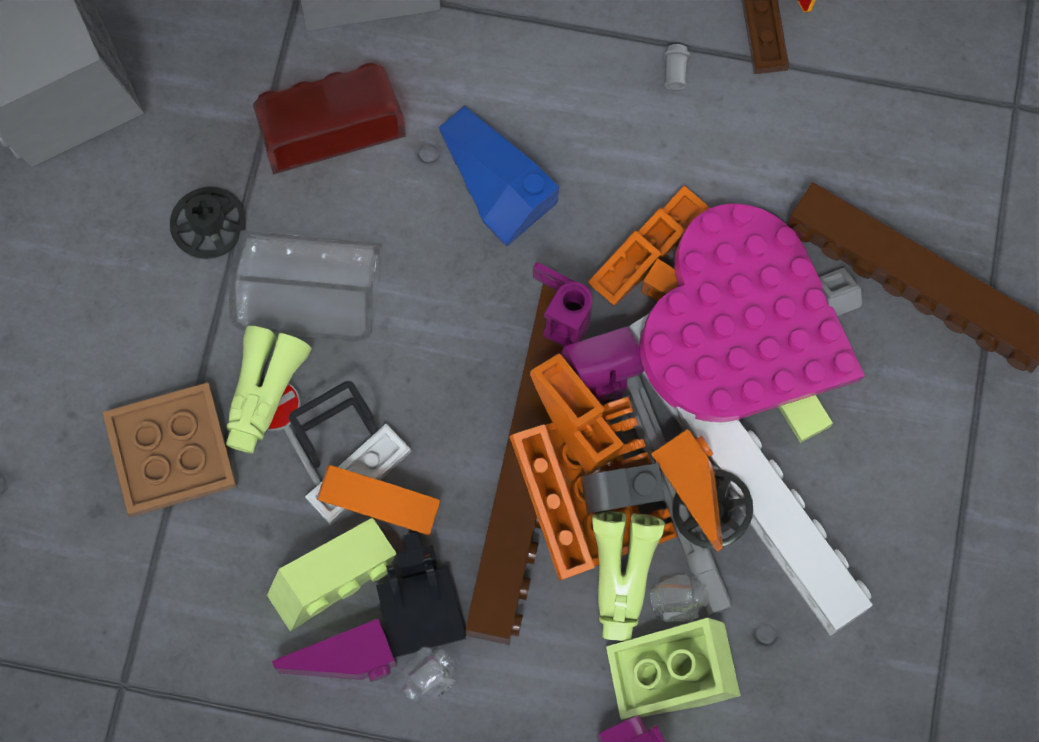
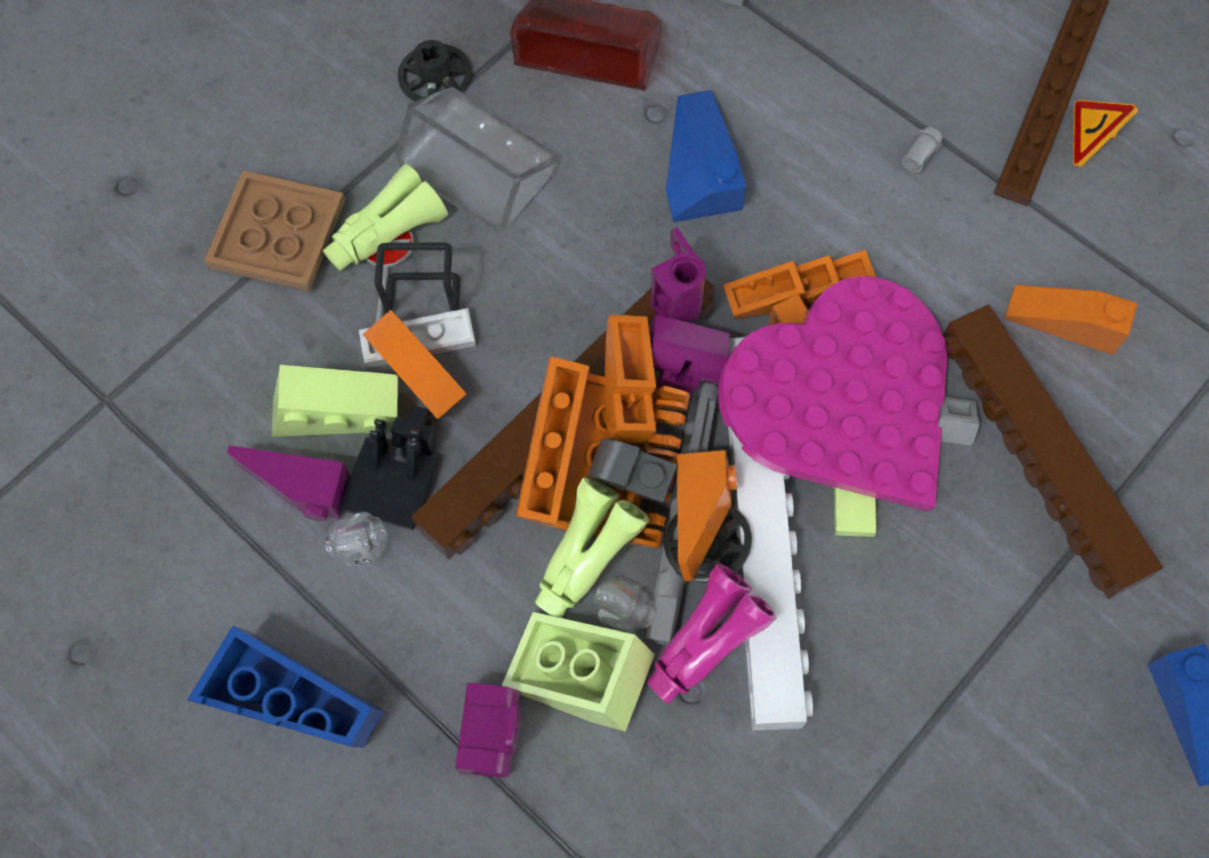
camera: 35 degrees right, 5 degrees down
(753, 604) = (692, 652): none -> dark pink piece
(878, 151) = (1074, 315): none -> orange slope

